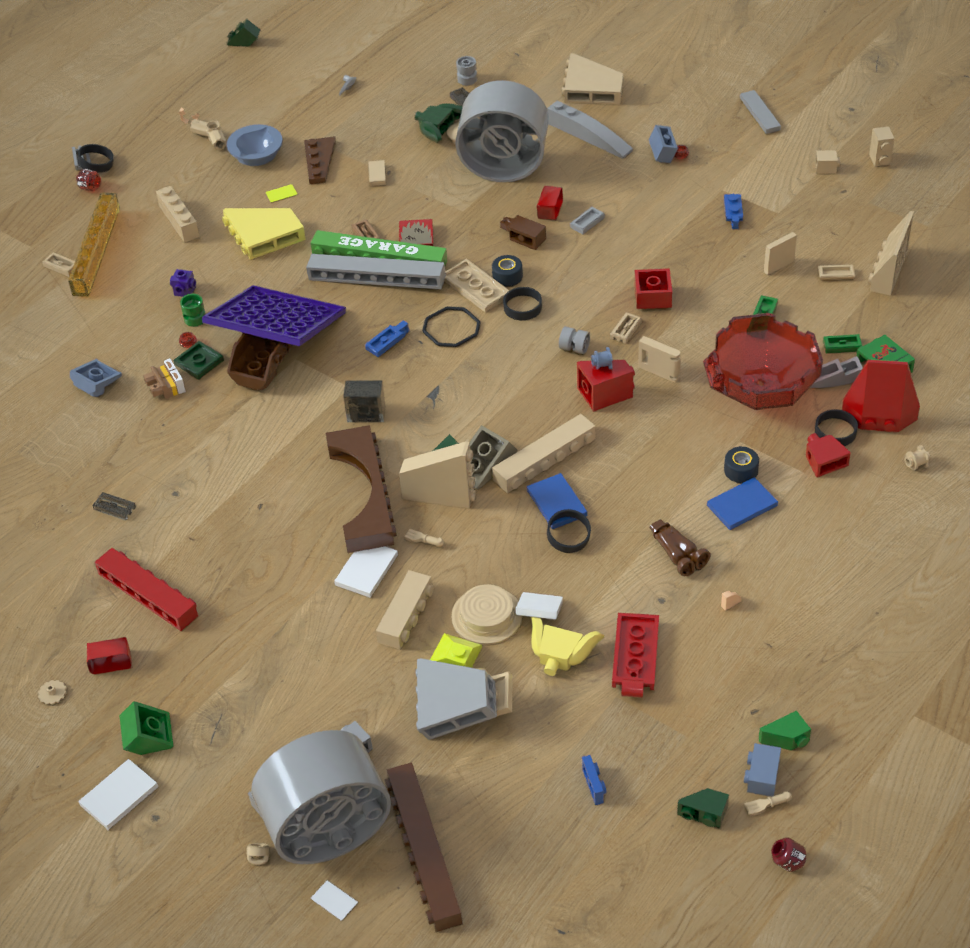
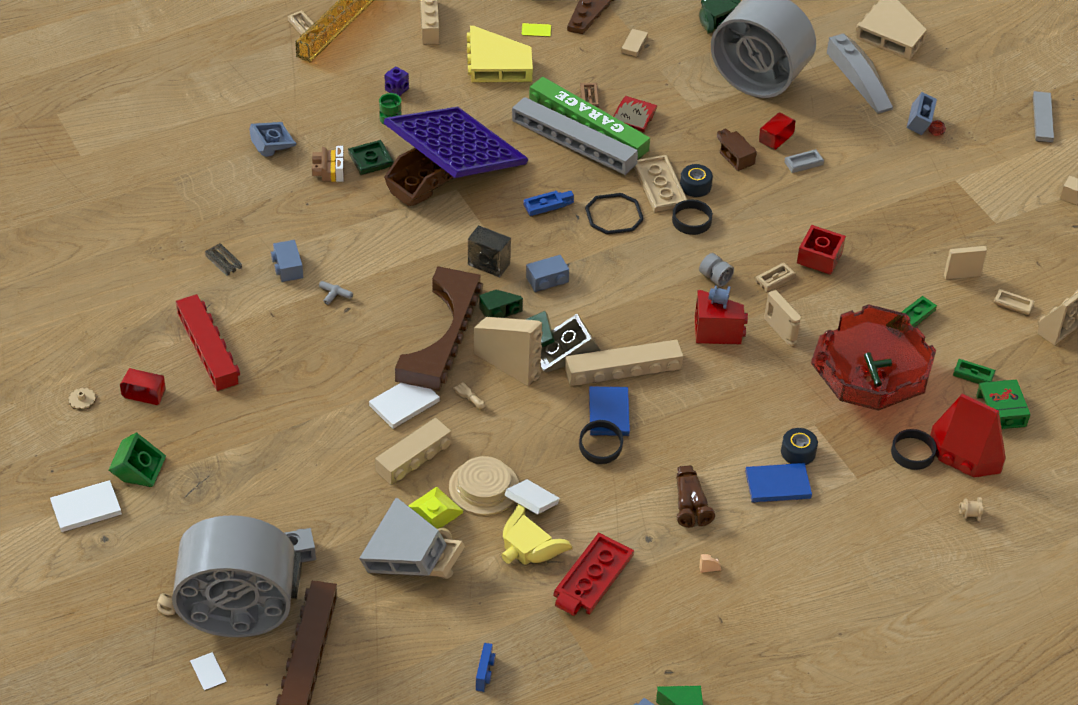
camera: 20 degrees right, 0 degrees up
(178, 483) = (287, 261): none -> sand blue brick
(187, 339) = (371, 134): clear red plate -> none
(239, 492) = (334, 290): none -> light grey piece
(401, 445) = (500, 304): none -> dark green slope
(427, 401) = (547, 273): none -> sand blue brick
(733, 209) = (952, 203): blue hinge -> none
(760, 370) = (873, 365): none -> dark green piece
(826, 454) = (886, 470): red torso -> none
(838, 373) = (942, 396): light grey slope -> none

